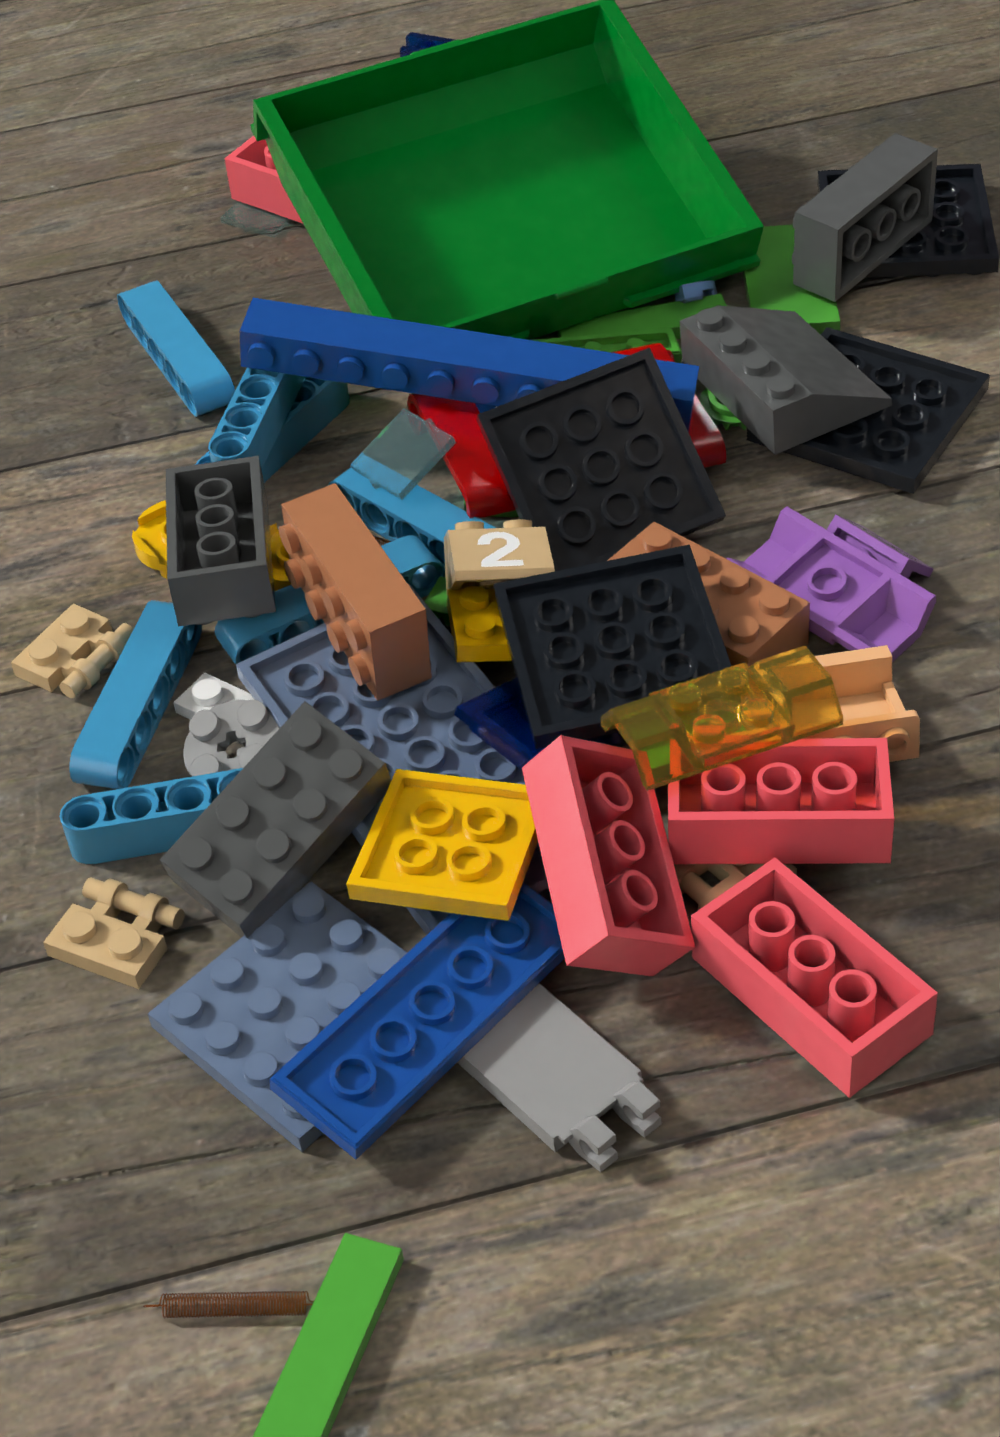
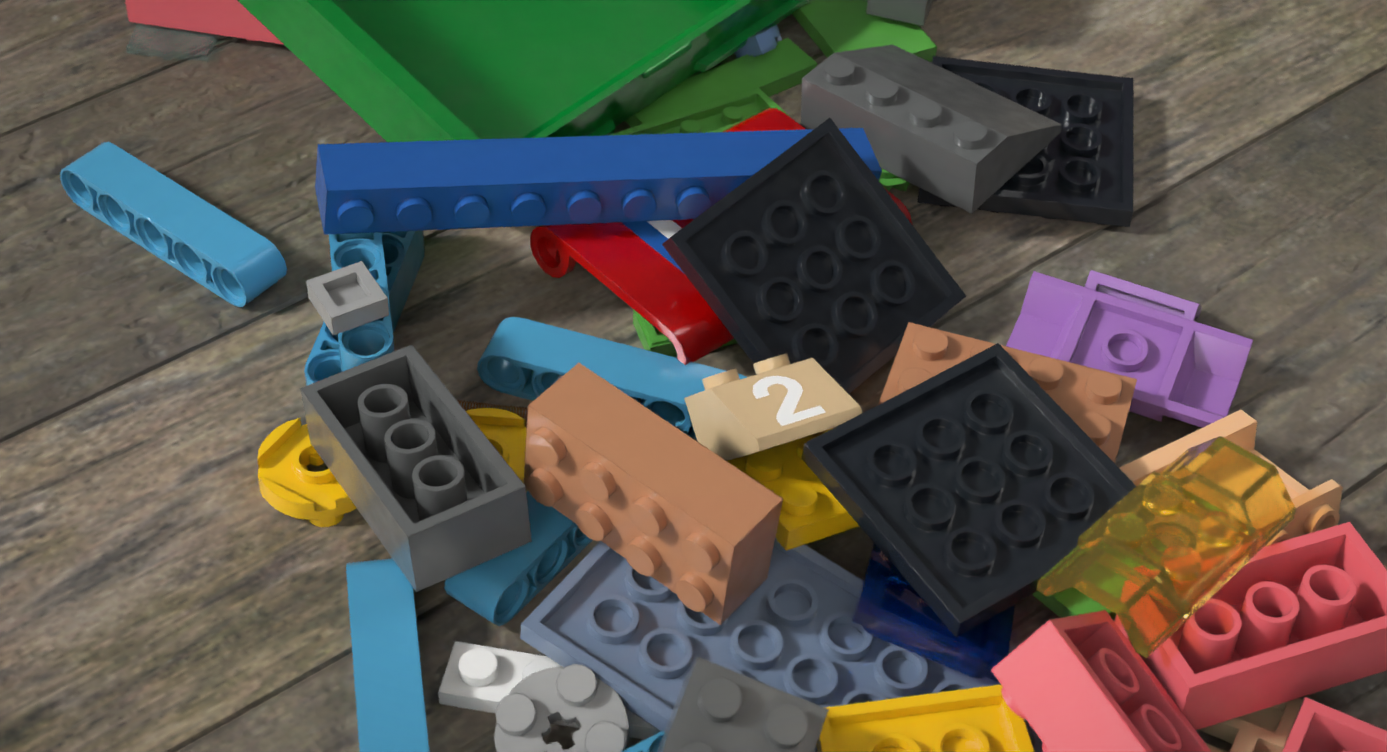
camera: 30 degrees left, 0 degrees up
(72, 651) = (244, 657): tan plate -> none
(224, 412) = (347, 298): none -> light grey plate
(403, 453) = (569, 302): clear light blue piece -> none

